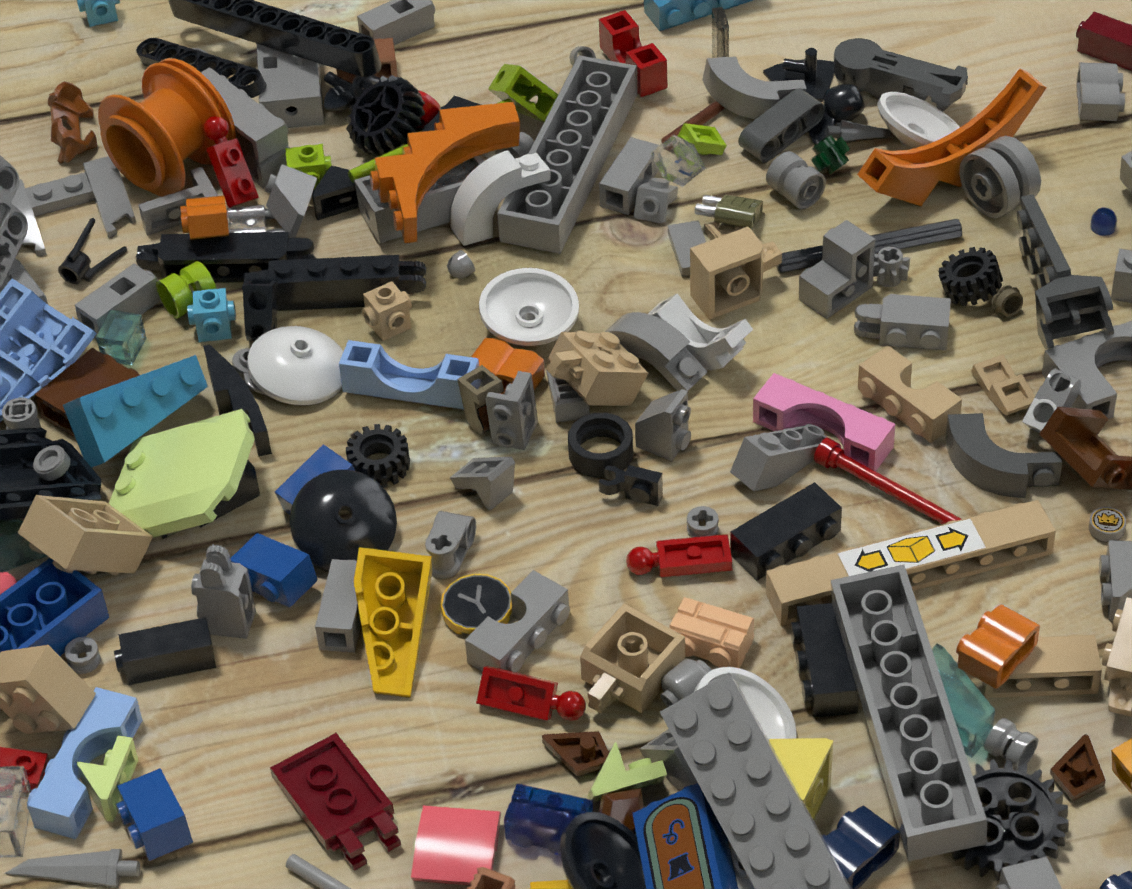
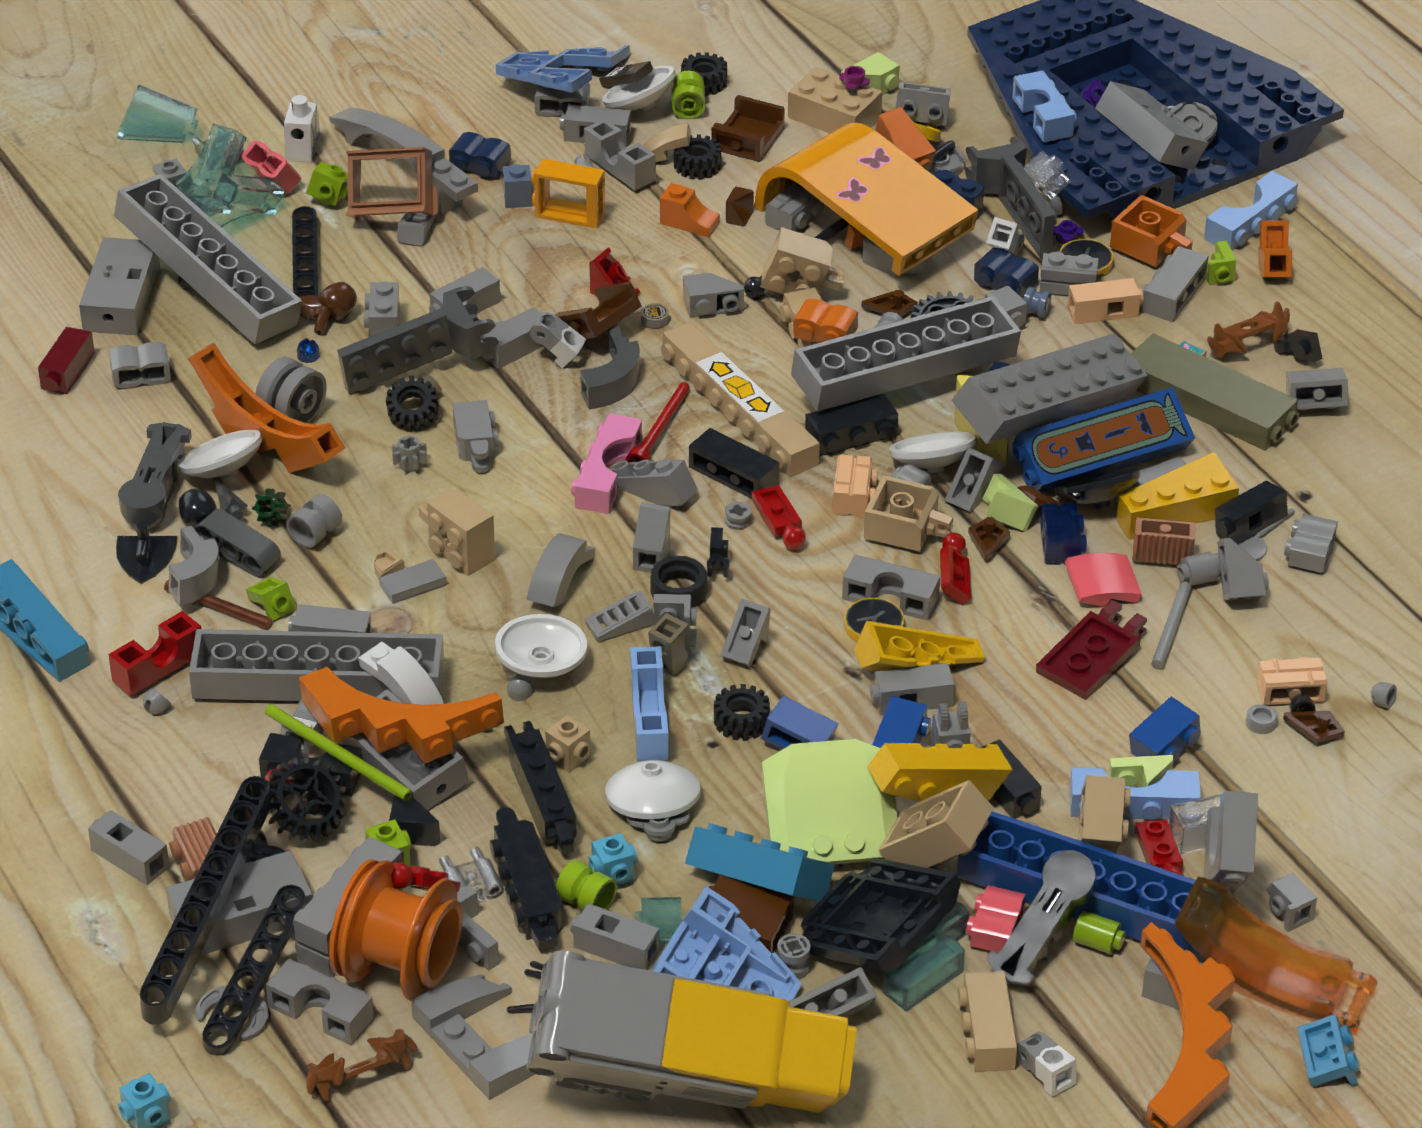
camera: 110 degrees left, 5 degrees down
(51, 462) = (849, 899): light grey tile -> none
(89, 868) = (1218, 766): light grey bar -> none
(159, 551) = (922, 772): none -> yellow wedge
(205, 217) = (505, 875): orange brick -> none
(233, 394) = (720, 808): black slope -> none
(259, 306) = (600, 814): black leg -> none
(289, 197) = (447, 838): light grey slope -> none
(326, 536) = (833, 701): black dish -> none
(449, 542) = (818, 645): light grey piece -> none
(506, 361) = (610, 655): orange brick -> none
(520, 87) = (250, 703): lime torso -> none
(597, 368) = (606, 584): tan hinge -> none
(653, 200) = (361, 601): light grey bracket -> none
(678, 160) = (315, 589): clear brick -> none
(707, 344) = (546, 524): white arch -> none
(720, 33) = (131, 592): clear smoke tile -> none
(731, 210) = (362, 553): olive piece -> none
(842, 272) = (427, 470): light grey brick -> none
(887, 382) = (572, 413): tan arch -> none
(899, 239) = (379, 476): black axle -> none
(1002, 386) = (529, 380): tan slope -> none

